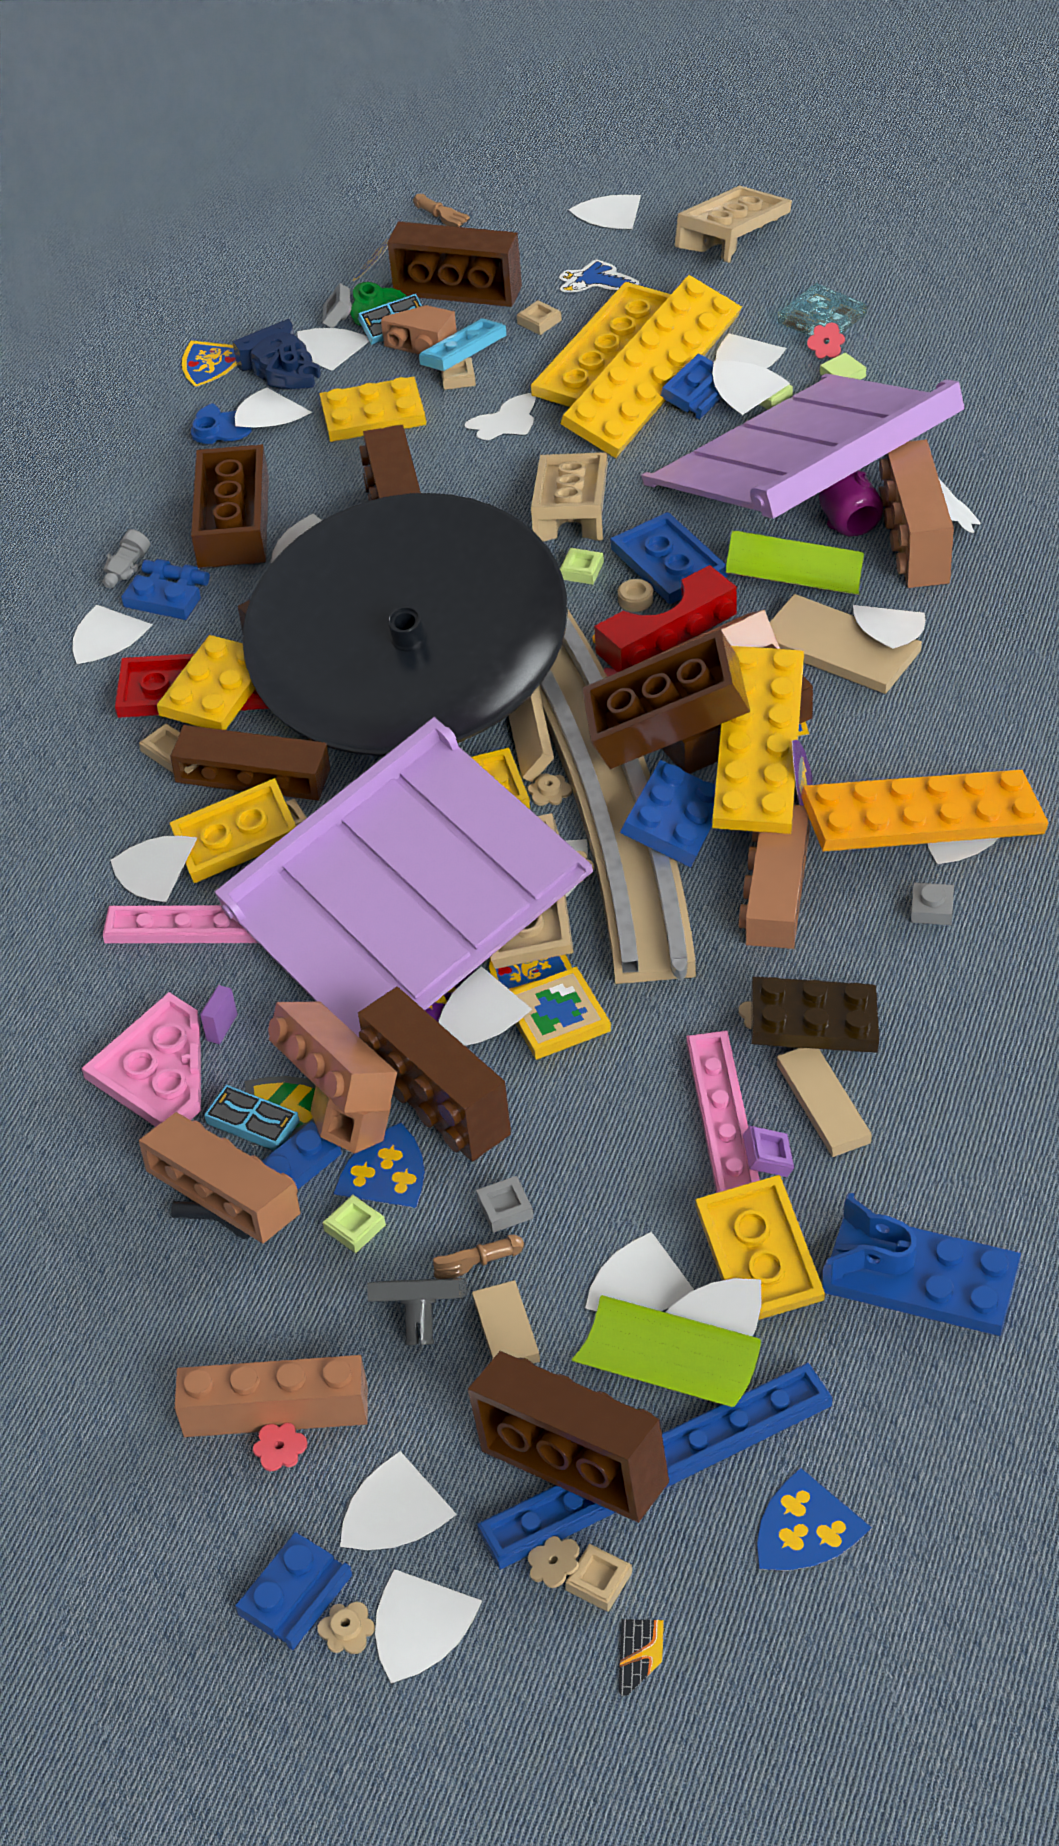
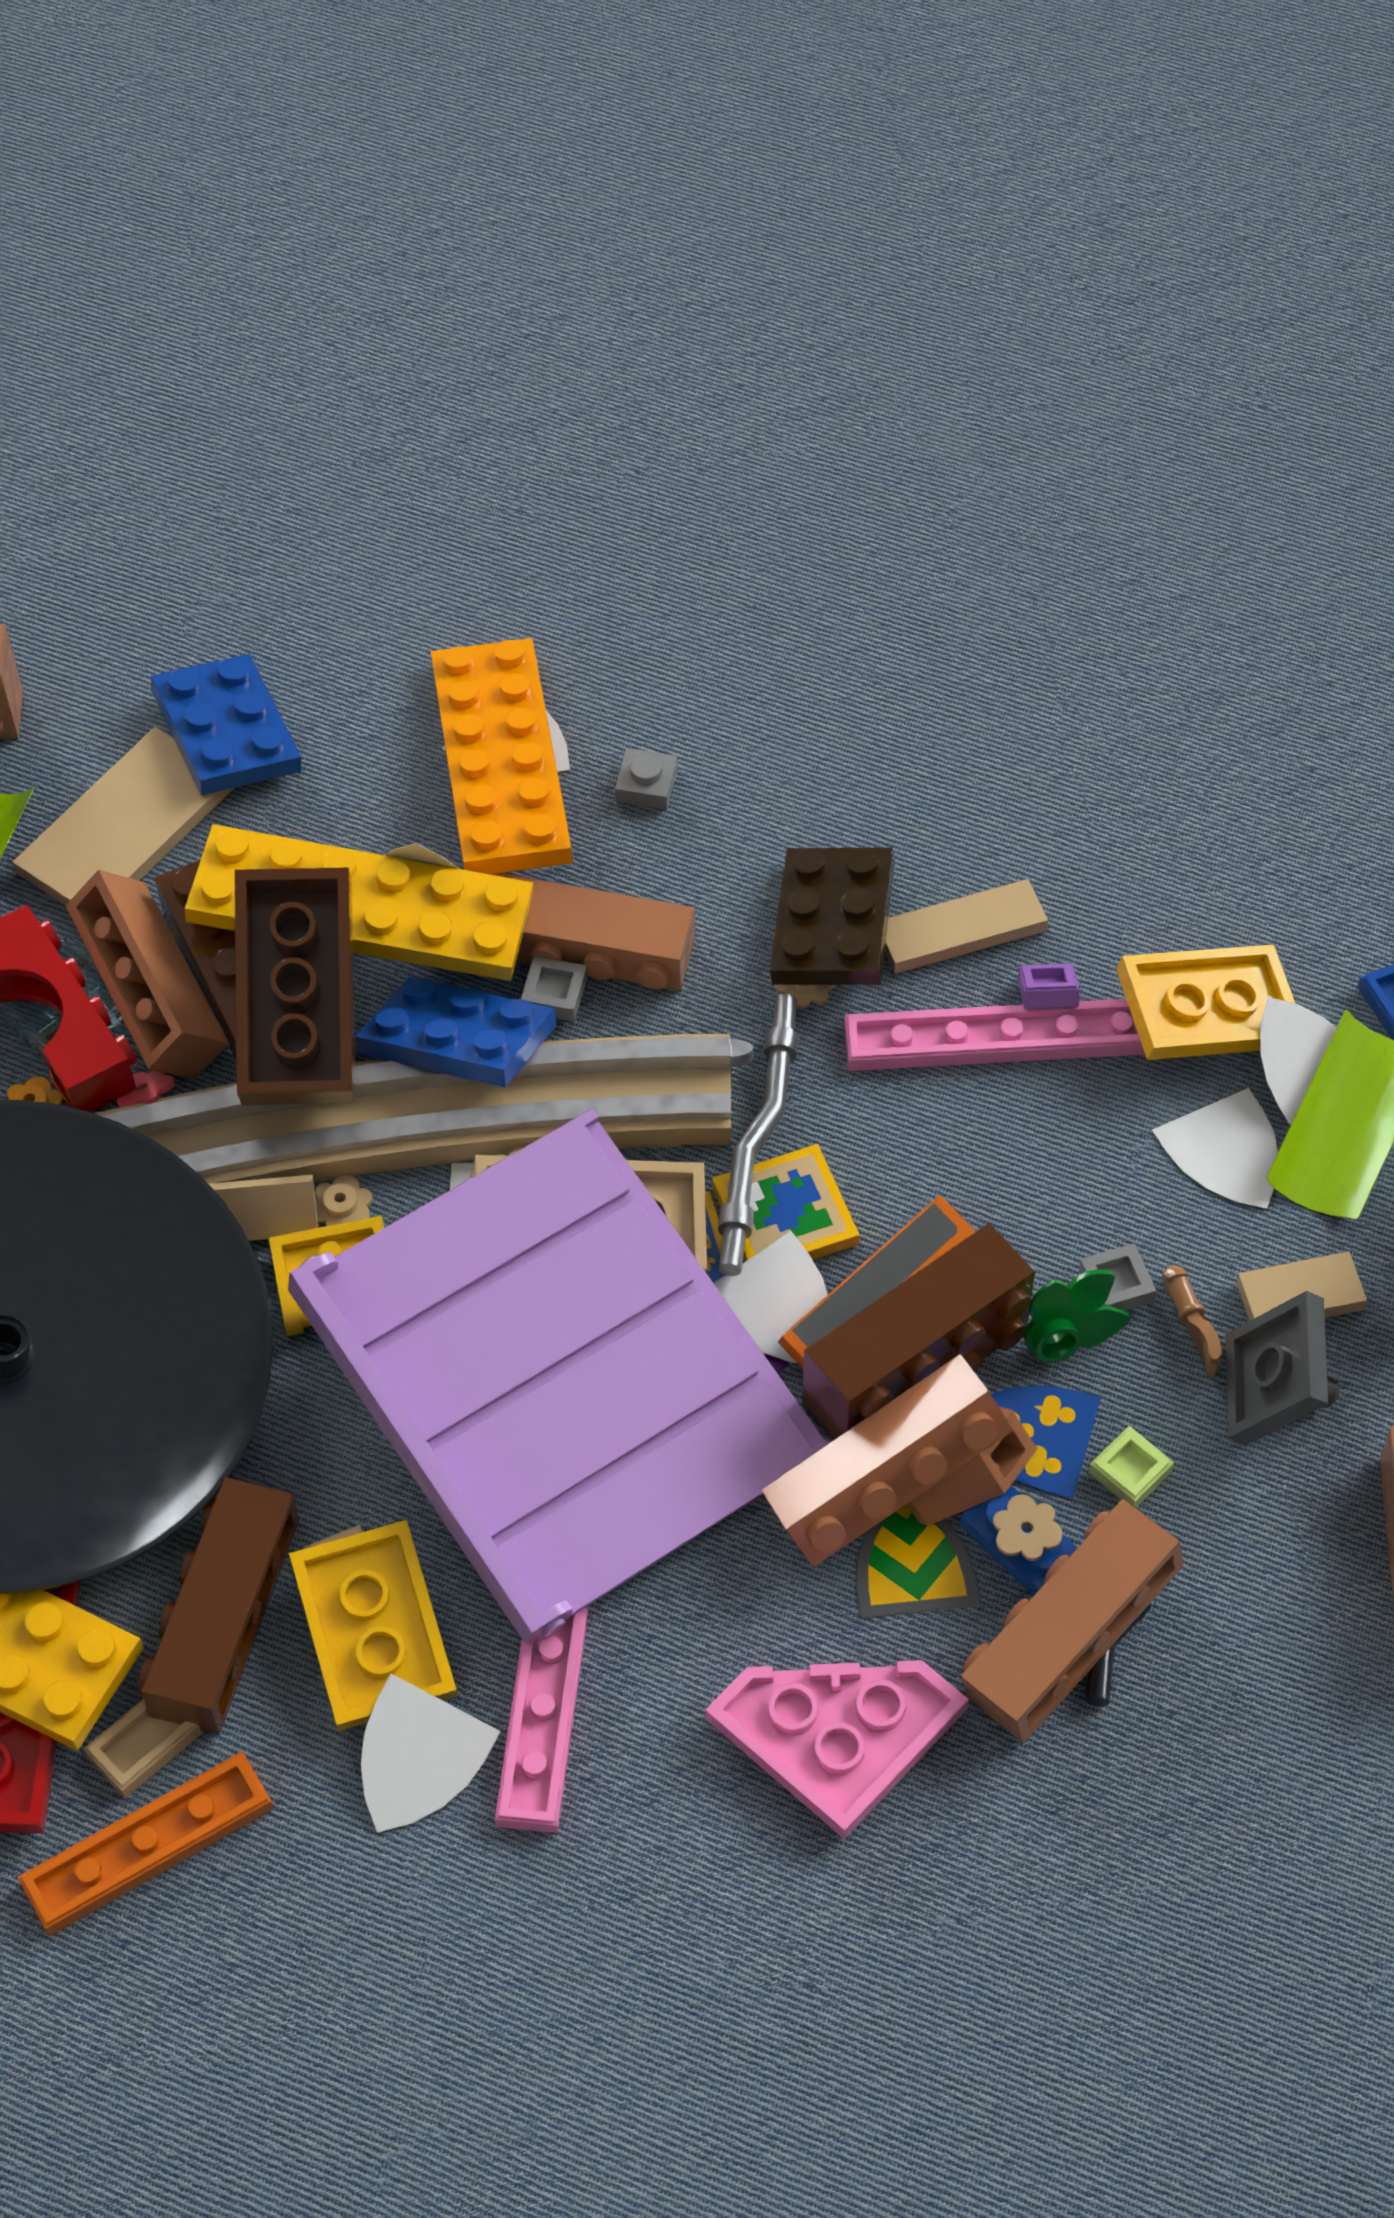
camera: 90 degrees left, 10 degrees up
(110, 761) = (145, 1843): none -> orange tile
(218, 1014) = (753, 1639): medium lavender tile -> none
(251, 1118) = (942, 1598): tile -> none
(288, 1146) = (1025, 1514): none -> tan plant
(462, 1167) = (1072, 1316): none -> green plate
(526, 1086) = (906, 1253): none -> dark grey tile
(695, 997) = (736, 1215): none -> flat silver bar
(727, 867) = (556, 986): none -> light grey plate
(890, 626) = (109, 757): white sticker -> none
(920, 1271) = (1227, 858): blue plate -> none
(929, 673) = (225, 724): none -> blue plate

